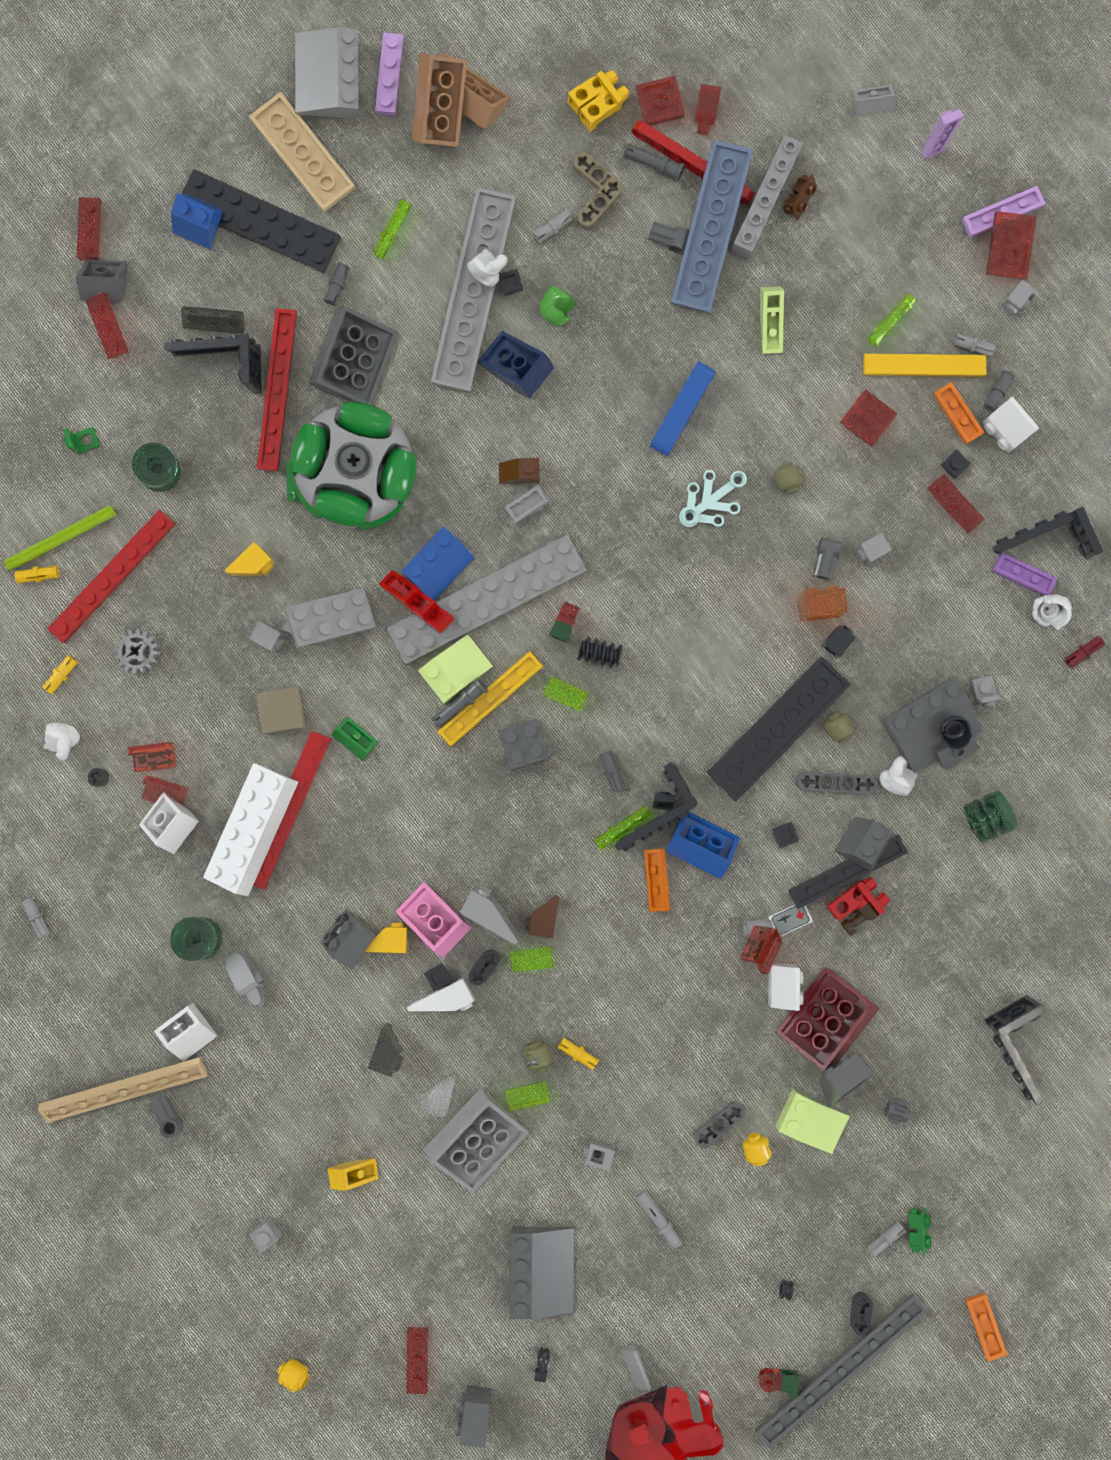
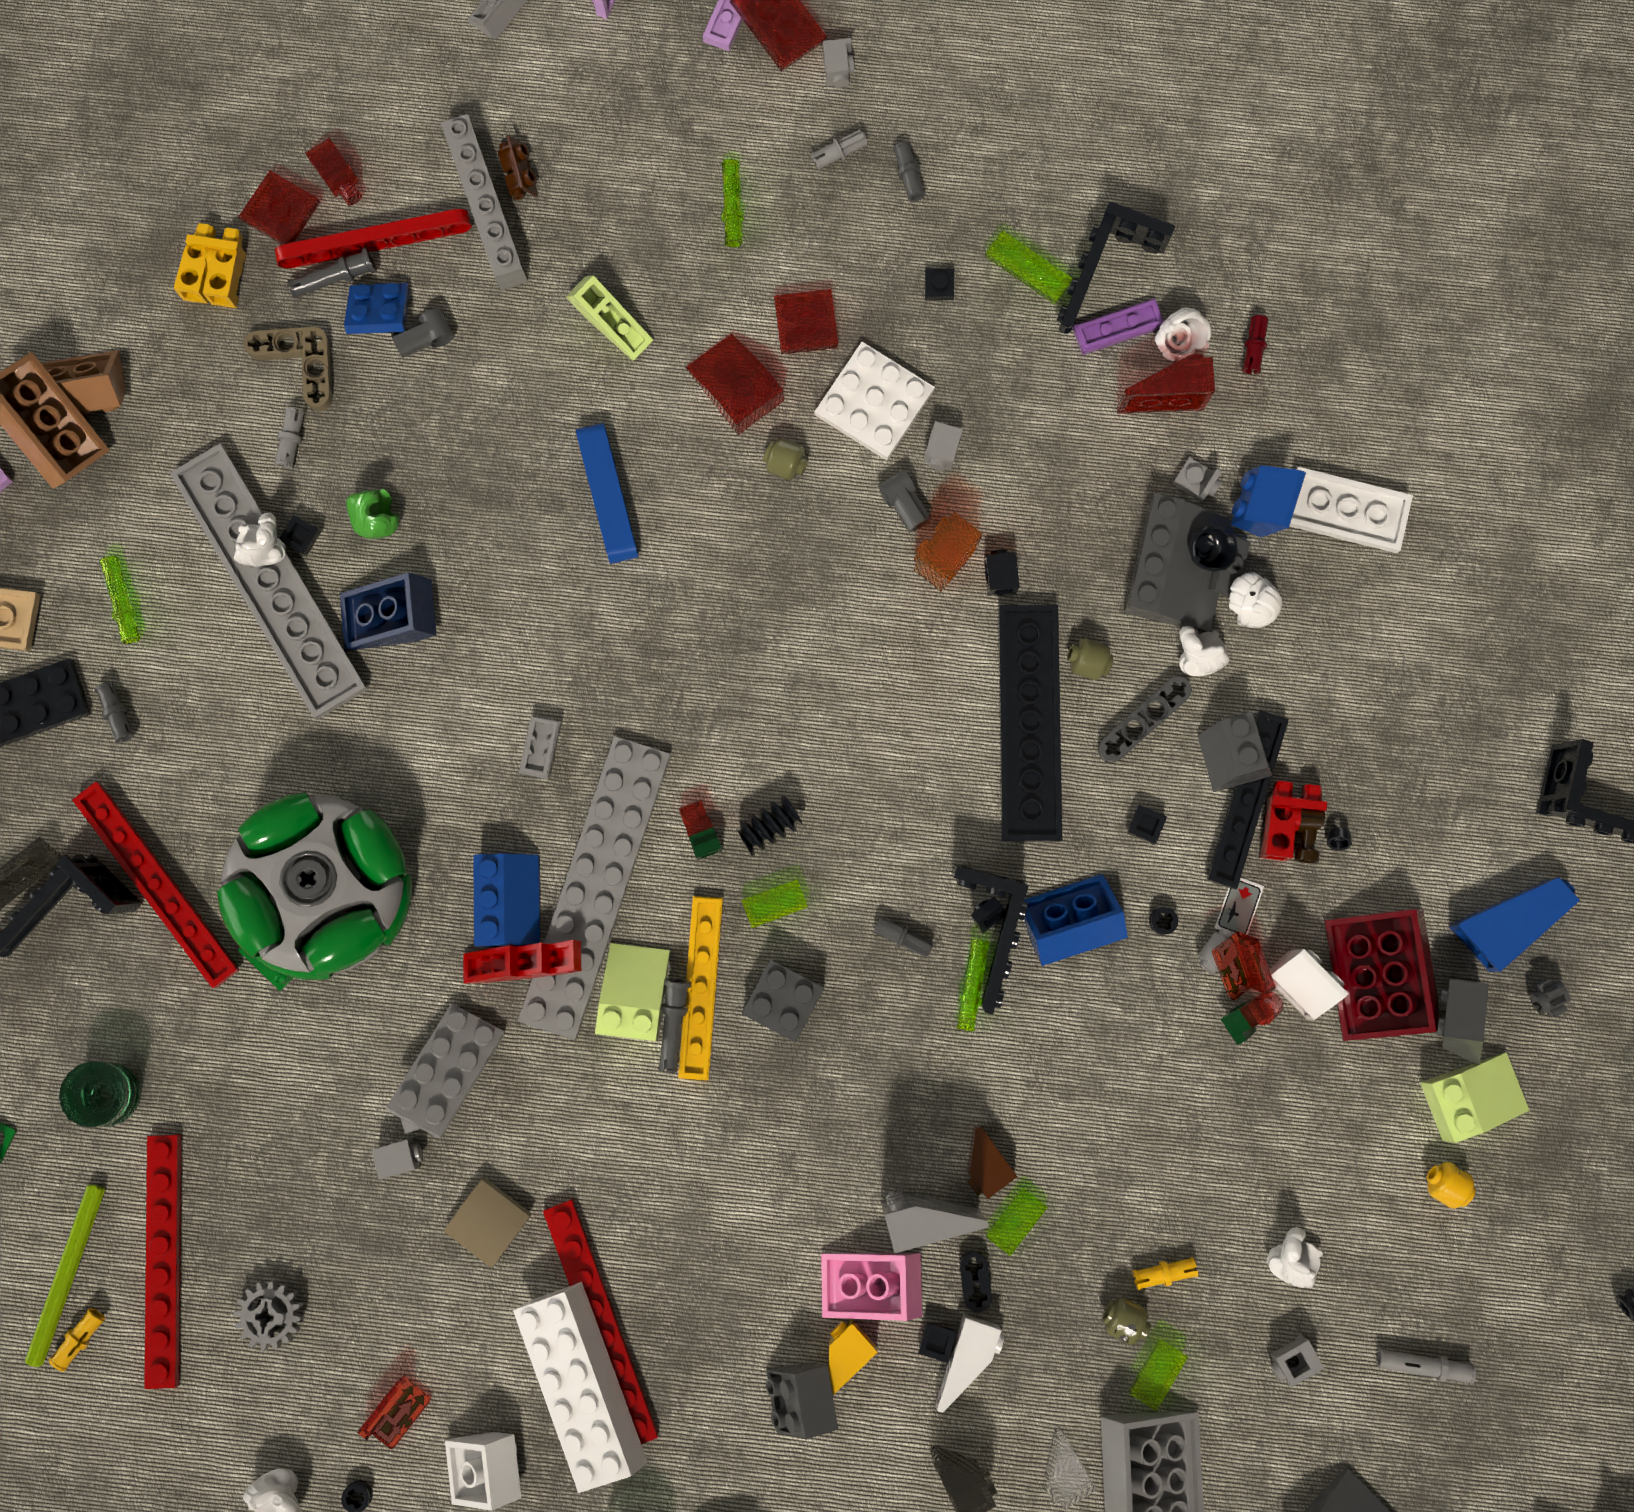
camera: 40 degrees left, 5 degrees down
(59, 674) = (206, 1425): yellow pin -> none
(156, 786) = (431, 1441): clear red panel -> none
(251, 563) = (302, 1095): yellow slope -> none
(353, 356) = (204, 770): dark grey slope -> none
(354, 738) = (597, 1173): green slope -> none
(519, 471) = (499, 719): reddish brown slope -> none
(647, 1109) = (1295, 1259): none -> white hair
(656, 880) = (1063, 1004): orange plate -> none
(659, 201) = (376, 308): none -> blue plate
(710, 501) = (728, 559): light aqua plant -> none
(712, 226) = (456, 282): sand blue plate -> none
(719, 1133) = (1395, 1208): dark grey beam -> none
(738, 973) = (1256, 1011): none -> leg
(743, 883) = (1154, 917): none -> black bush
(802, 415) = (736, 383): none -> clear red slope
(862, 492) = (874, 401): none -> white plate
(873, 934) = (1339, 838): none -> black hinge
(914, 1059) = (1511, 925): none -> blue slope
(924, 365) = (809, 217): yellow tile -> none
(949, 785) = (1254, 610): none -> white hair
(955, 503) = (978, 323): clear red plate -> none
(958, 413) = (891, 231): orange plate -> none
(991, 816) = (1333, 599): clear green wheel -> none
(1008, 735) = (1267, 499): none -> blue slope
(1009, 425) = (955, 192): white slope -> none
(1009, 500) = (1028, 267): none -> clear neon green plate
(1020, 634) = (1179, 387): none -> clear red slope
(1044, 780) = (1352, 511): none -> white plate

